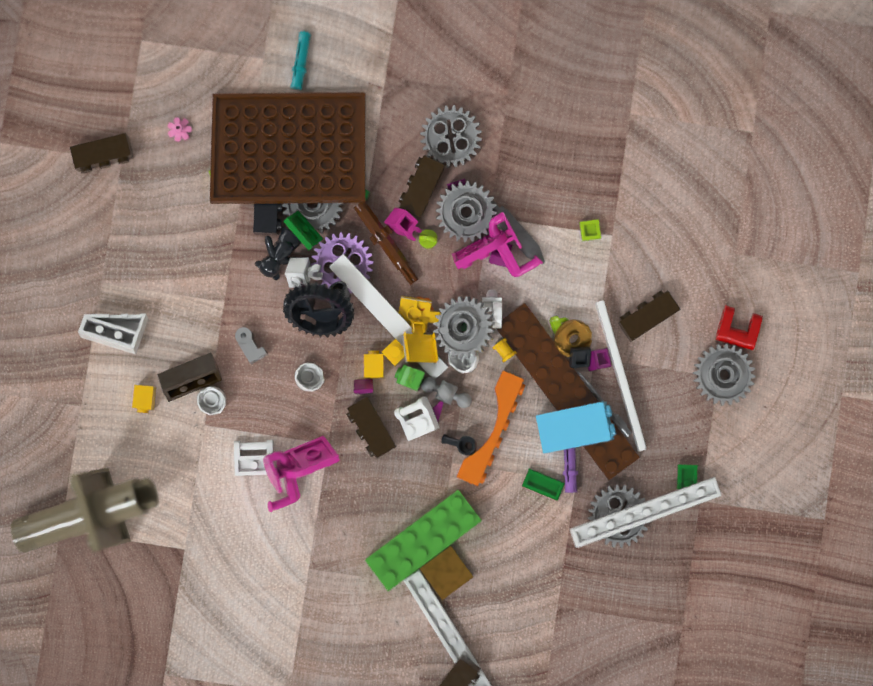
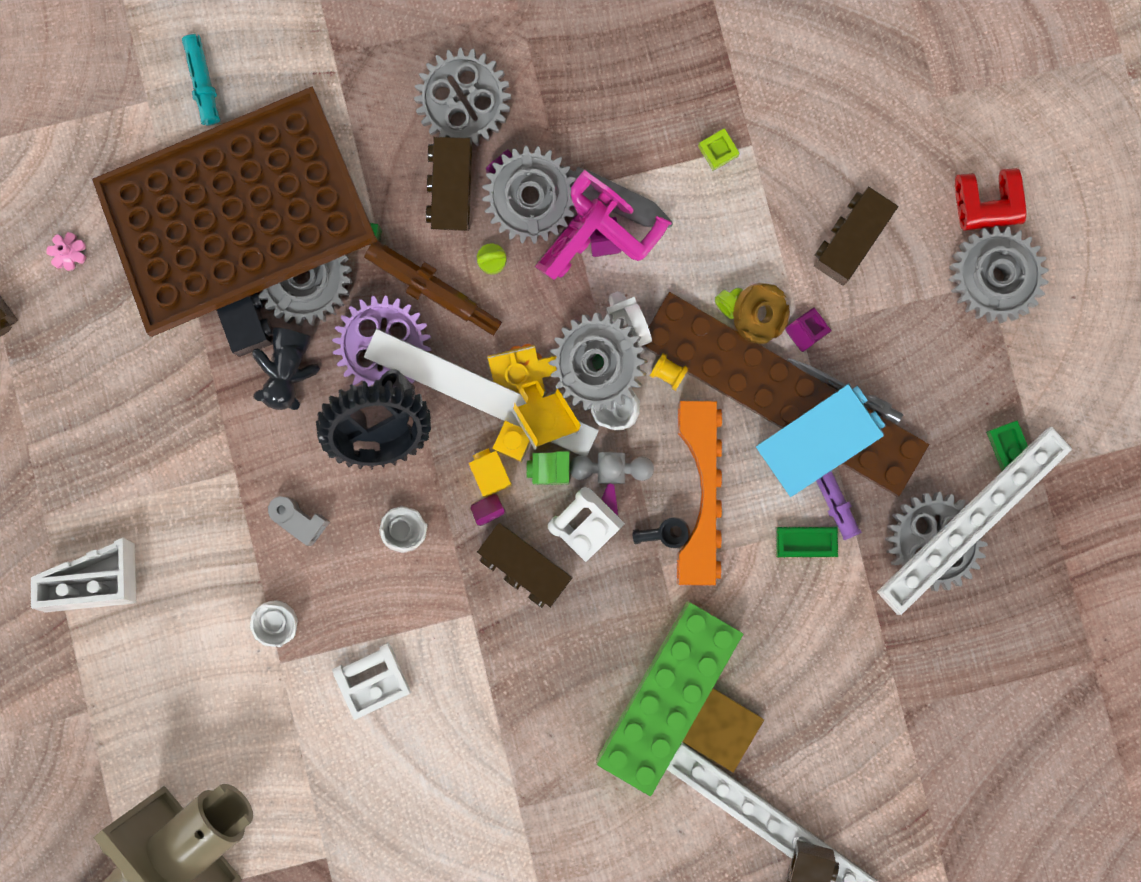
camera: 25 degrees left, 0 degrees up
(144, 398) = (173, 662): yellow brick -> none
(189, 377) = (227, 603): dark brown brick -> none
(297, 463) = (437, 666): dark pink plate -> none
(300, 271) = (325, 379): white brick -> none
(303, 230) = (303, 319): green plate -> none
(402, 223) = (445, 250): dark pink brick -> none
(580, 357) = (782, 336): black tile -> none
(620, 375) = (852, 339): white tile -> none

